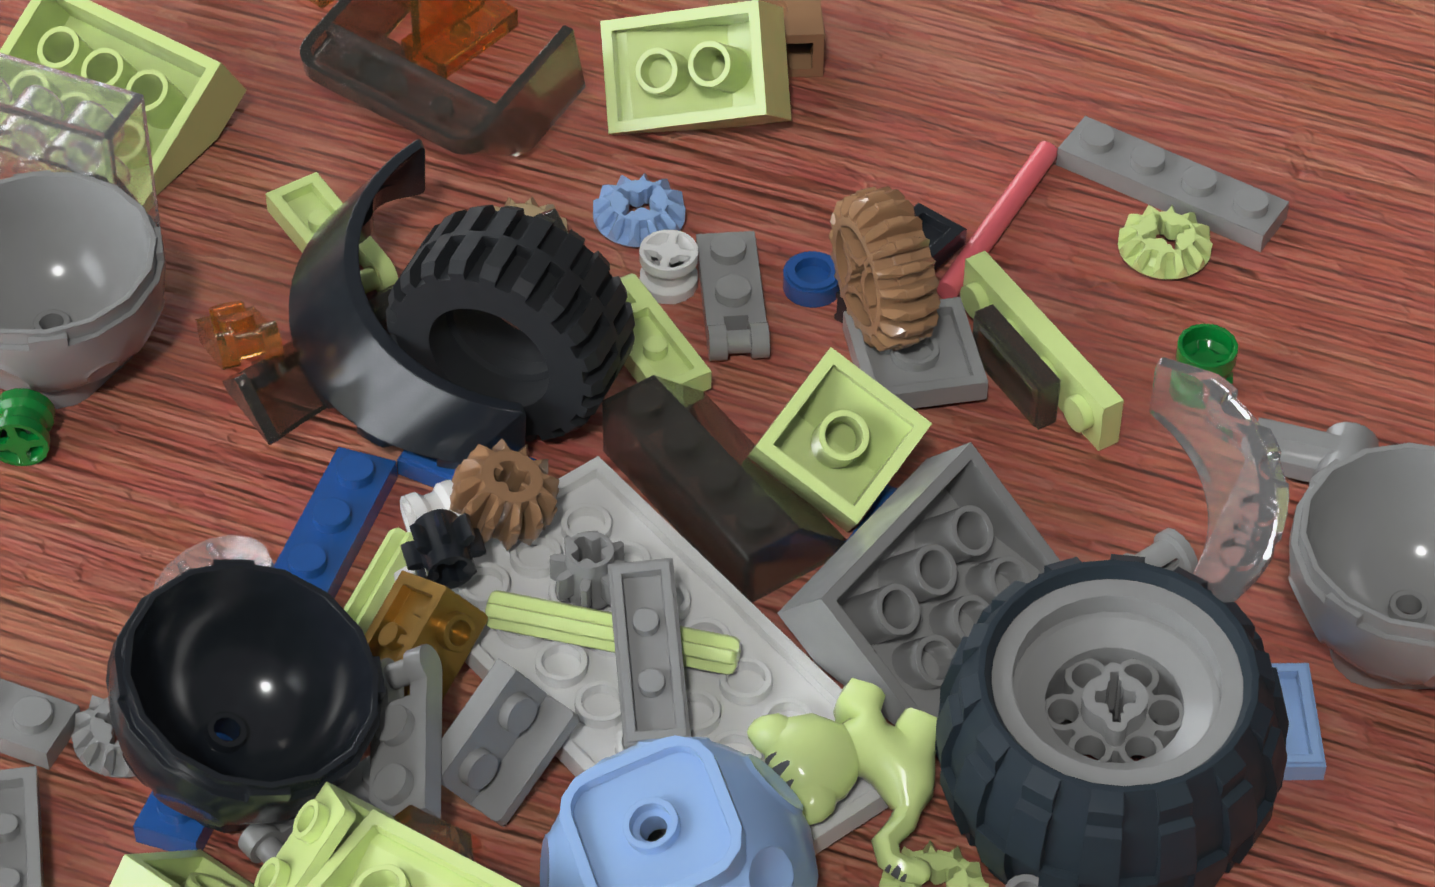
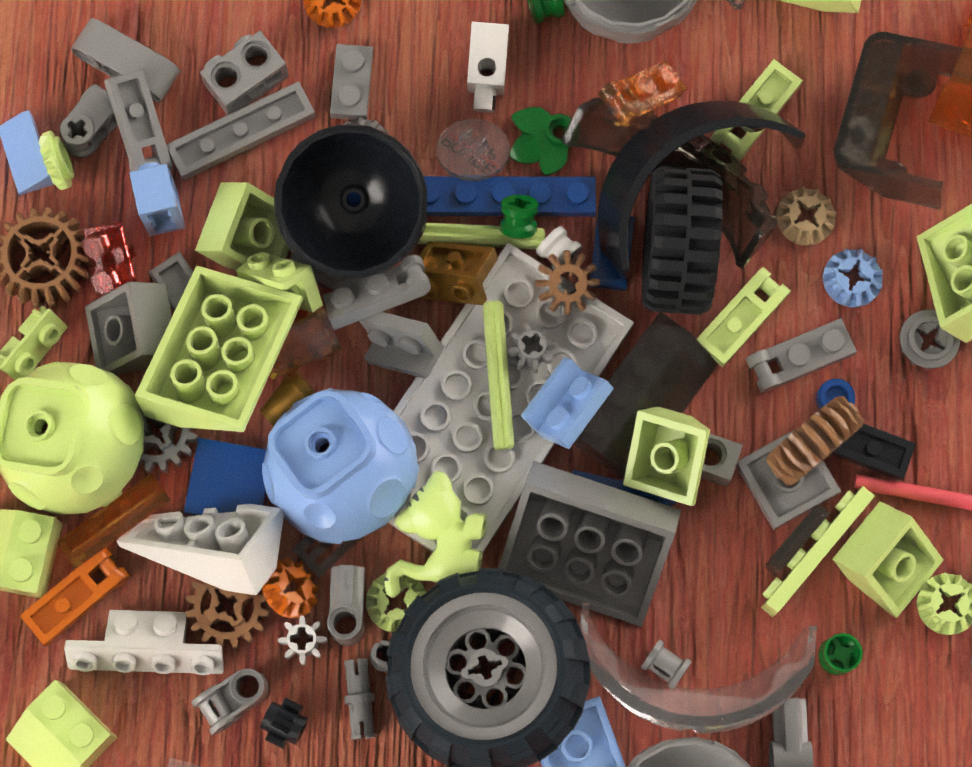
camera: 70 degrees right, 30 degrees up
(82, 509) = (487, 52): none -> white torso
(241, 494) = (538, 141): none -> green plate
(361, 539) = (519, 216): none -> green wheel
(443, 548) = (516, 264): black gear -> none
(648, 650) = (478, 401): light grey tile -> none
(669, 266) = (809, 303): white wheel -> none
(712, 546) = (566, 403): none -> light blue bracket
(770, 141) = (925, 322): none -> light grey gear
(1075, 276) = (888, 558): none -> yellowish green slope

